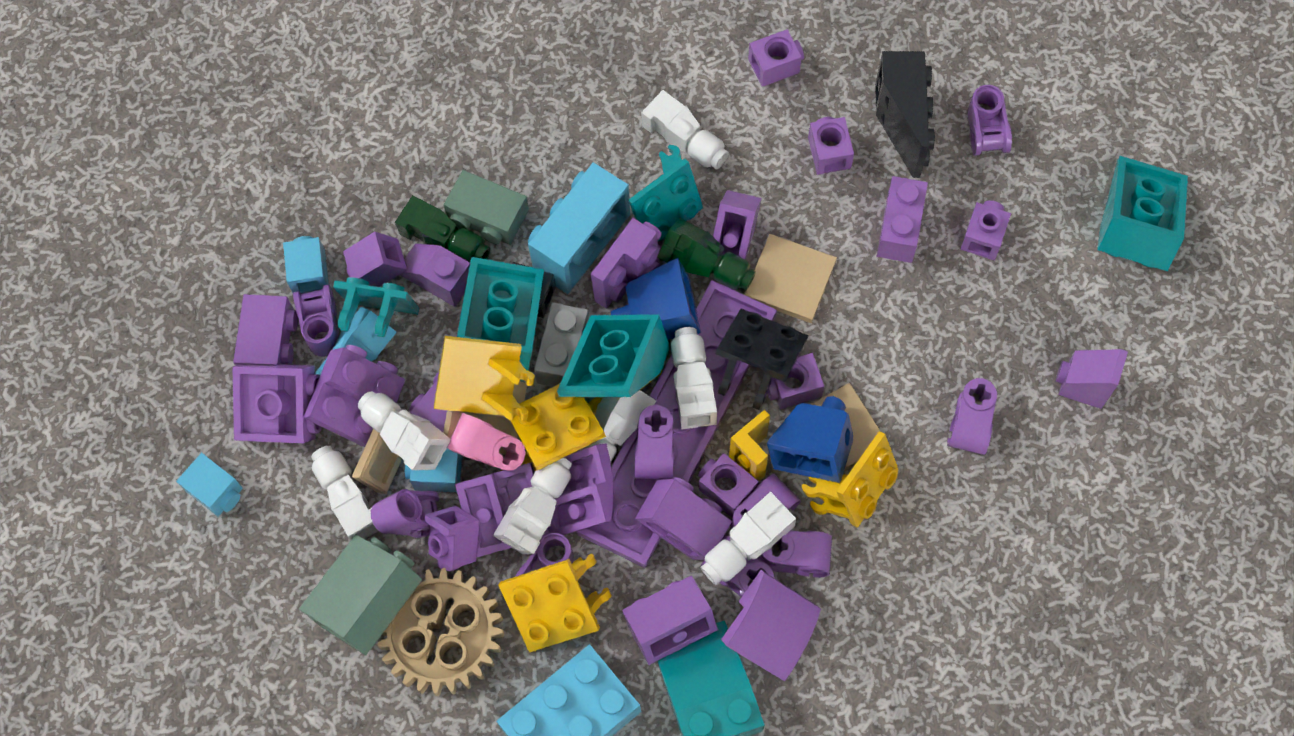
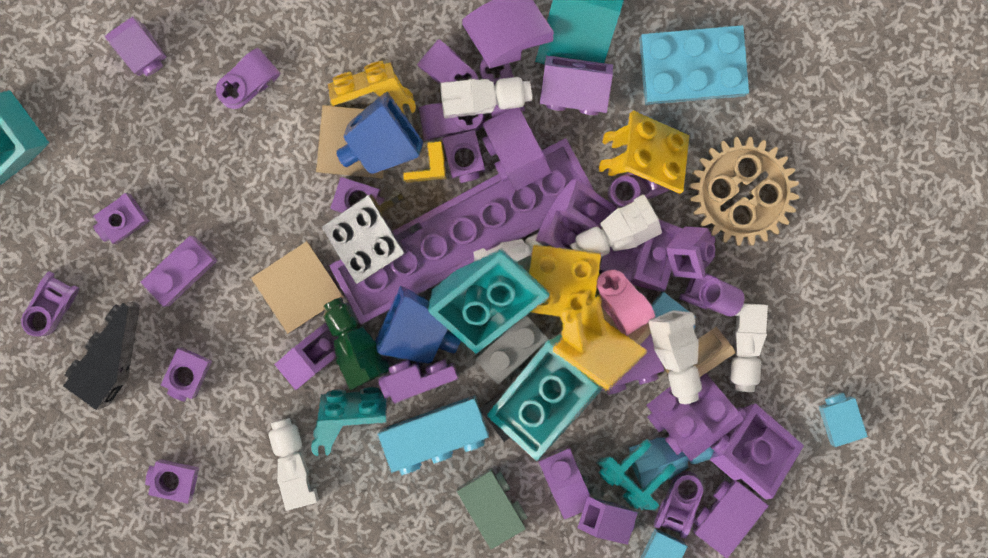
camera: 145 degrees left, 20 degrees up
(362, 592) = (784, 255): sand green brick -> none
(436, 228) = (541, 514): dark green piece -> none
(655, 449) = (502, 212): medium lavender piece -> none
(692, 380) = (434, 250): white piece -> none

